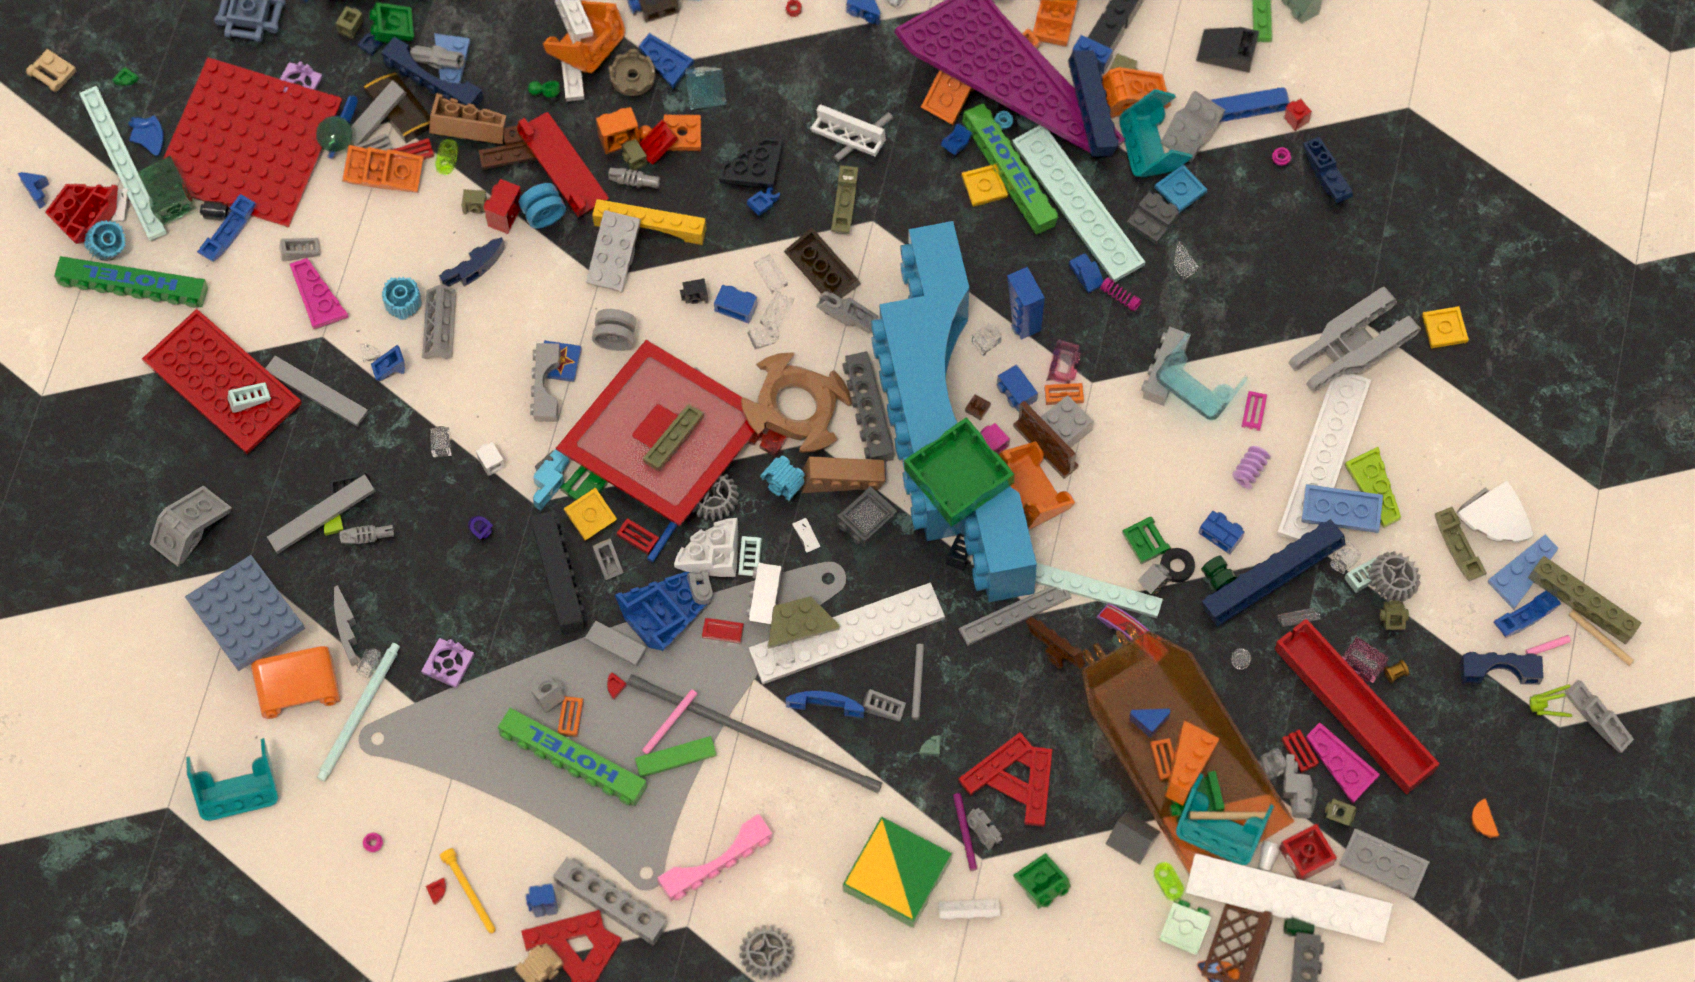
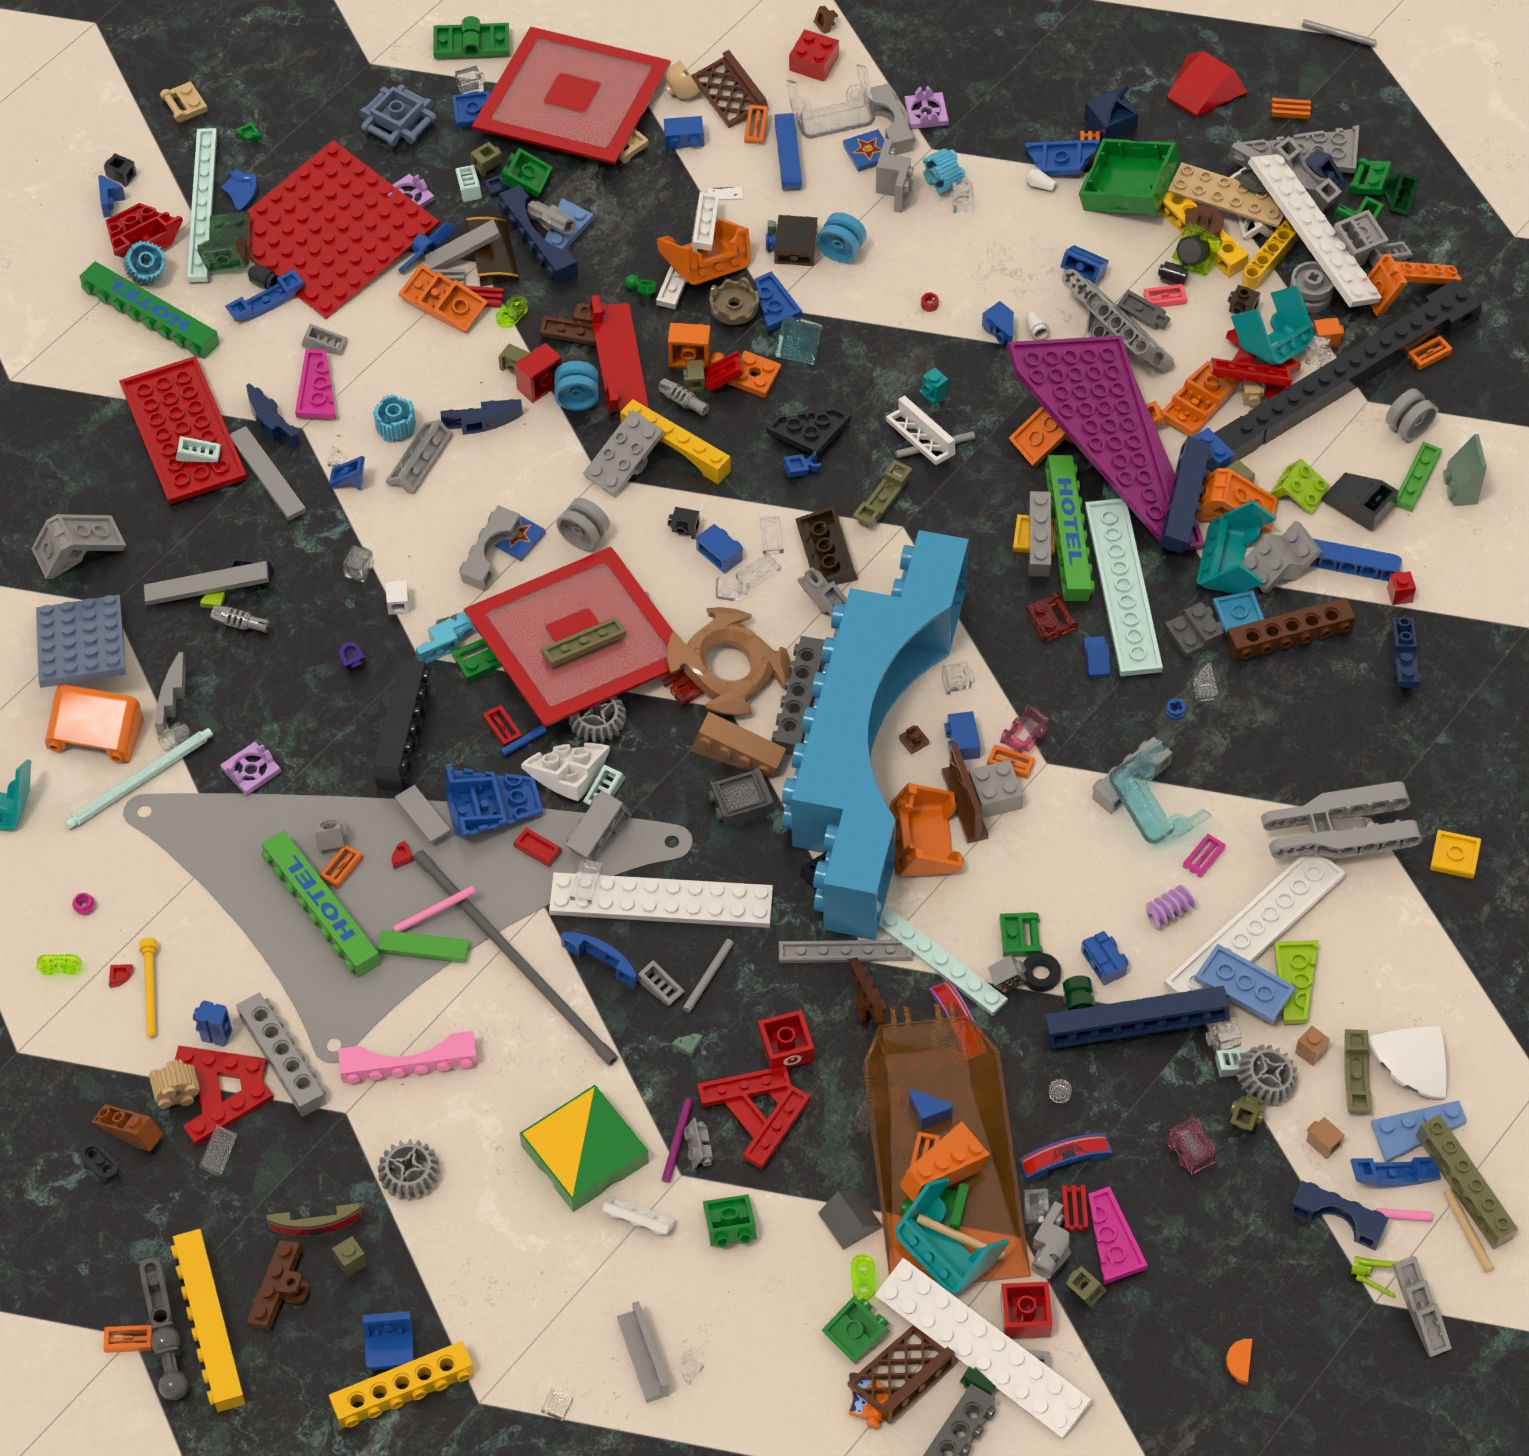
camera: 25 degrees right, 10 degrees down
(31, 158) = (120, 169): none -> black brick
(121, 205) = (180, 237): white sticker -> none
(285, 337) = (268, 419): none -> dark blue slope
(334, 134) = (412, 248): clear green dish -> none
(350, 59) = (468, 184): none -> light aqua slope
(376, 907) = (58, 963): none -> clear neon green plate
(465, 121) = (544, 283): medium nougat wedge -> none
(590, 514) = (466, 686): yellow tile -> none
(607, 559) = (459, 733): light grey slope -> none
(701, 593) = (534, 801): light grey plate -> none
(783, 478) = (675, 725): medium azure brick -> none
(799, 621) = (614, 864): olive wing -> none
(806, 535) = (672, 792): white sticker -> none
(837, 84) = (934, 386): none -> teal brick
(957, 140) = (1029, 481): blue bracket -> none
(959, 472) = (841, 772): green tile -> none
(995, 438) = (906, 772): dark pink slope -> none
(997, 195) = (1039, 534): none -> light grey arch
(1003, 115) = (1088, 477): medium azure plate -> none
(1011, 711) = (786, 1040): none -> red brick
(1025, 303) = (1007, 652): blue wedge -> none
(1029, 256) = (1046, 620): none -> clear red plate
(1132, 305) = (1113, 678): dark pink piece -> none
(1171, 299) = (1172, 704): none -> blue bush
(1175, 54) = (1302, 485): none -> lime bracket
(1258, 155) = (1275, 631): none -> reddish brown brick
(1268, 855) = (984, 1296): white cone -> none
(1270, 710) = (1064, 1152): none -> slope
(1281, 152) = (1364, 618): dark pink plate -> none
(1298, 616) = (1142, 1073): clear tile -> none
(1356, 706) = (1157, 1187): red piece -> none
(1384, 863) = (1105, 1357): light grey plate -> none
(1396, 671) = (1221, 1170): pearl gold bush -> none
(1415, 537) = (1312, 1045): none -> medium nougat brick
(1460, 609) = (1324, 1137): none -> medium nougat brick

